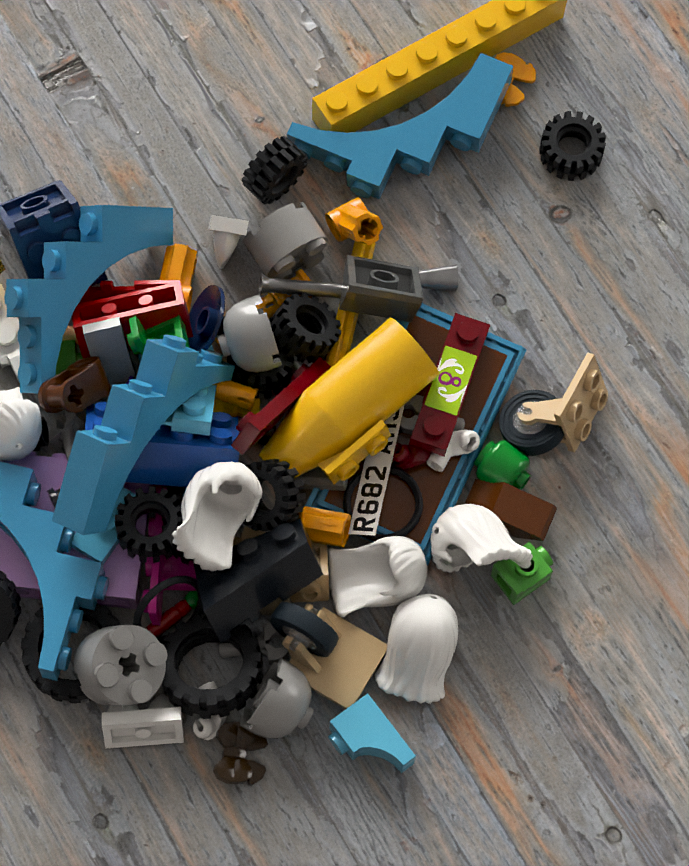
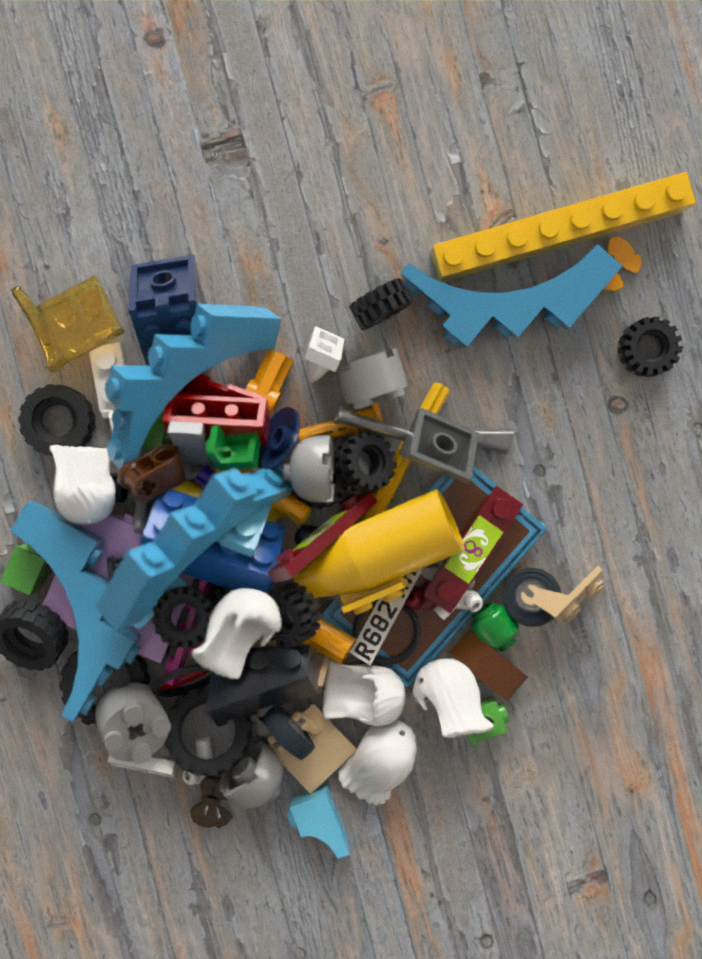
camera: 20 degrees right, 20 degrees up
(354, 222) = (436, 372): light orange piece -> none

